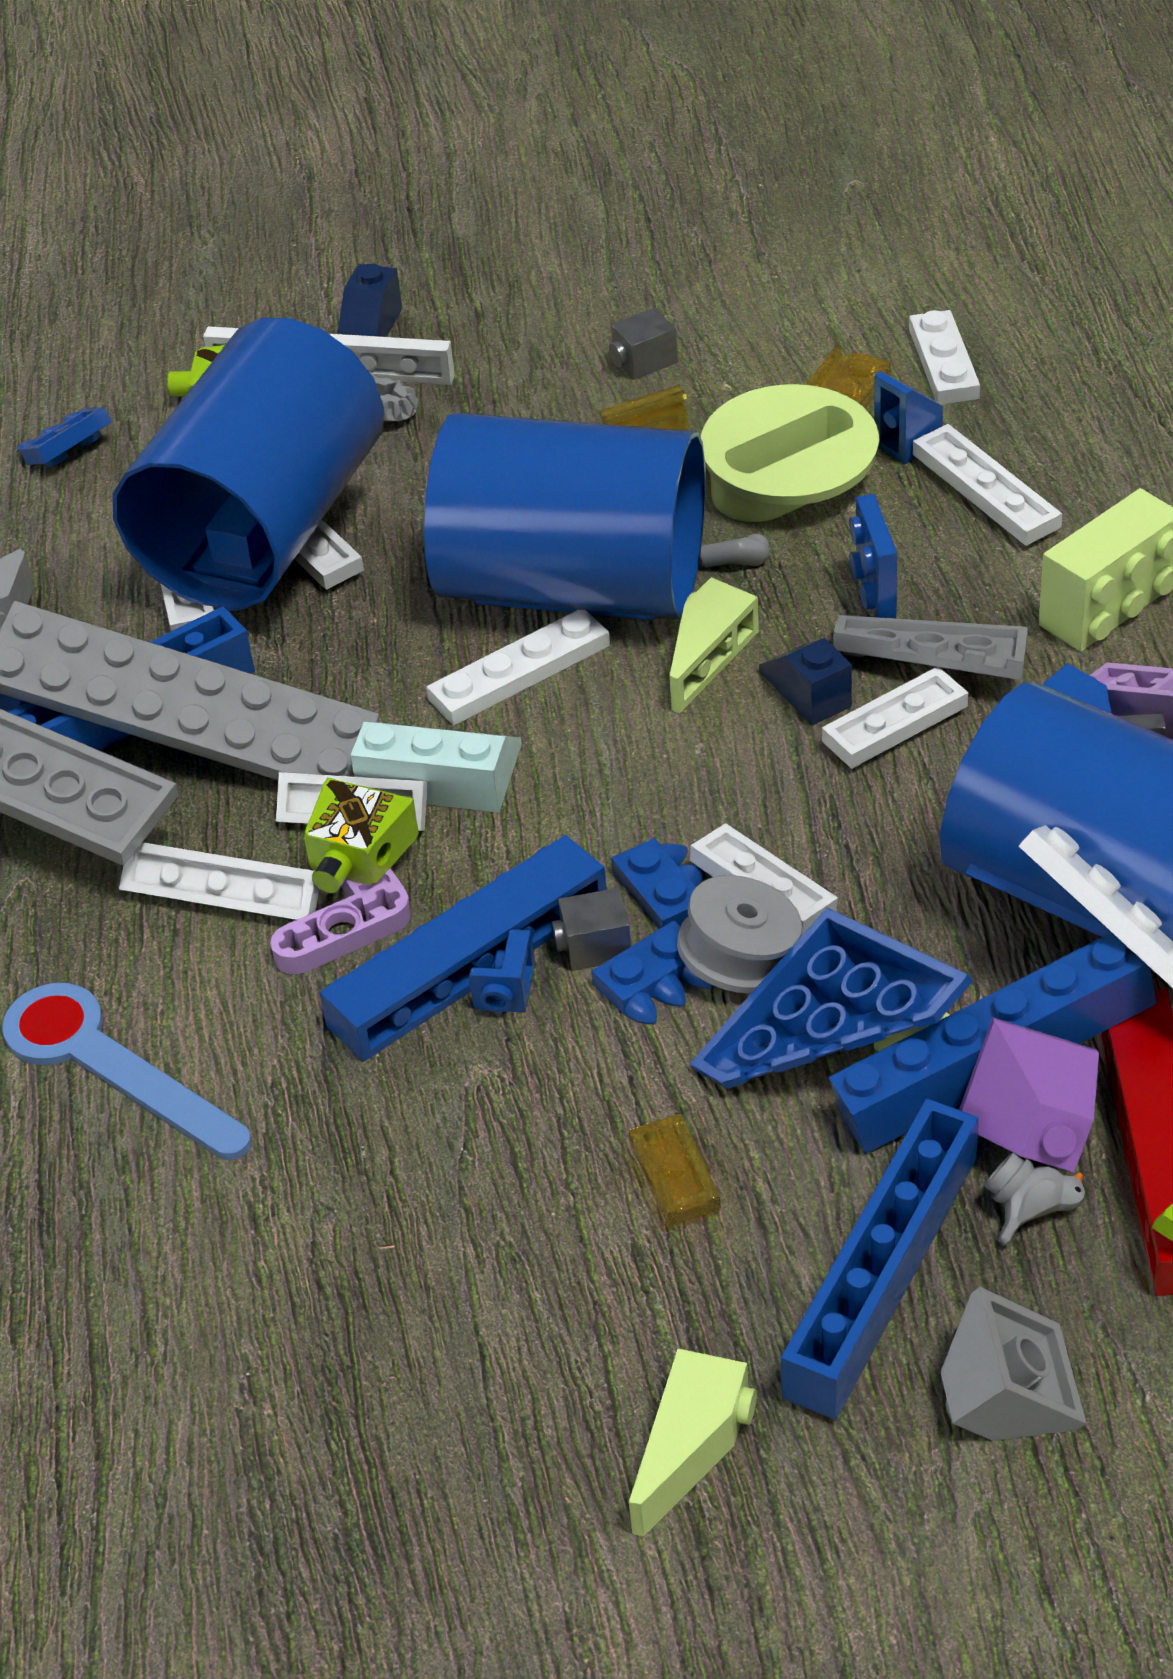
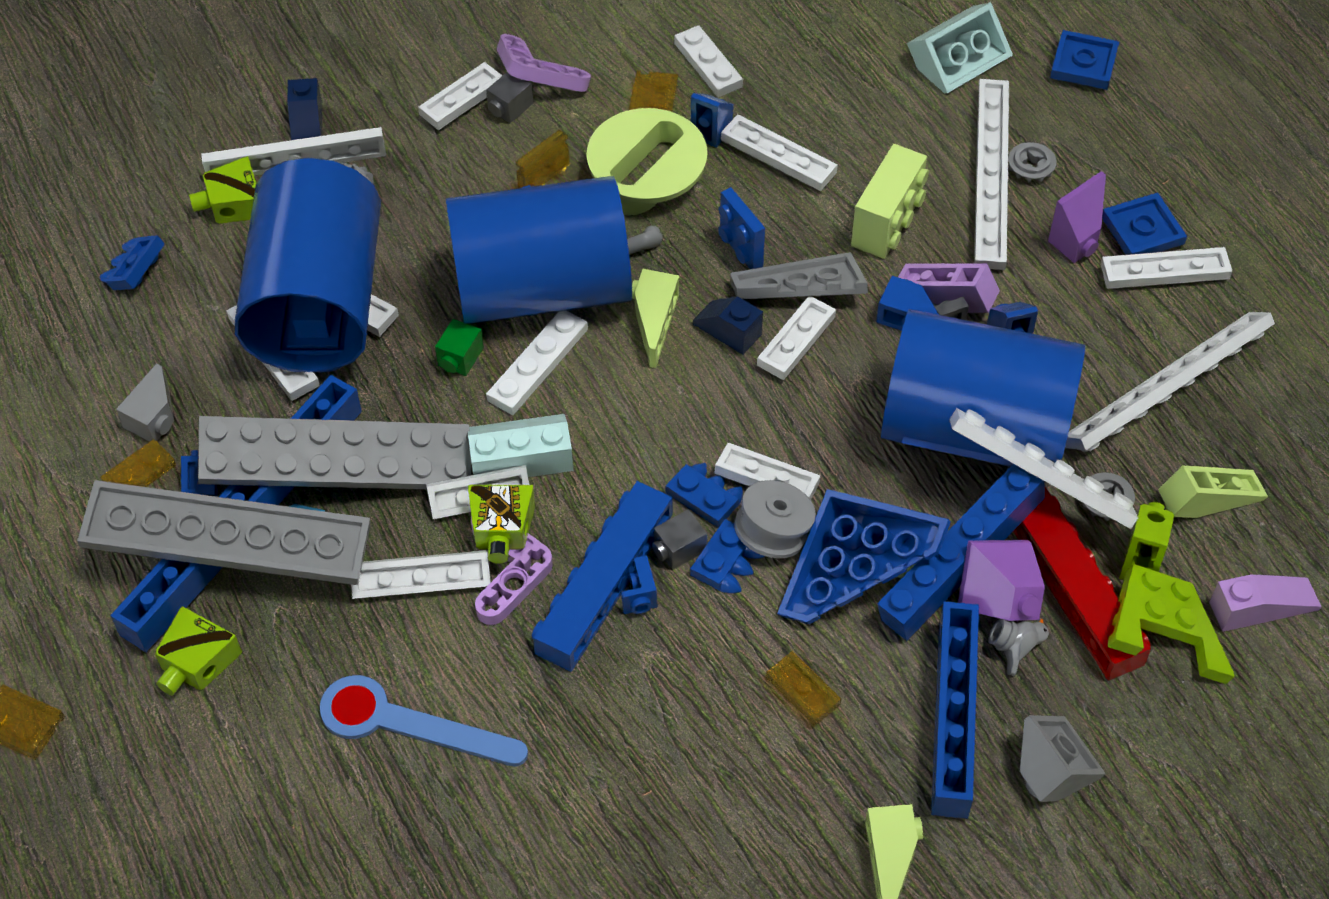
camera: 25 degrees left, 10 degrees up
(418, 622) = (459, 347): none -> green brick
(574, 332) = (459, 96): none -> white plate
(675, 305) = (522, 65): none -> lavender beam

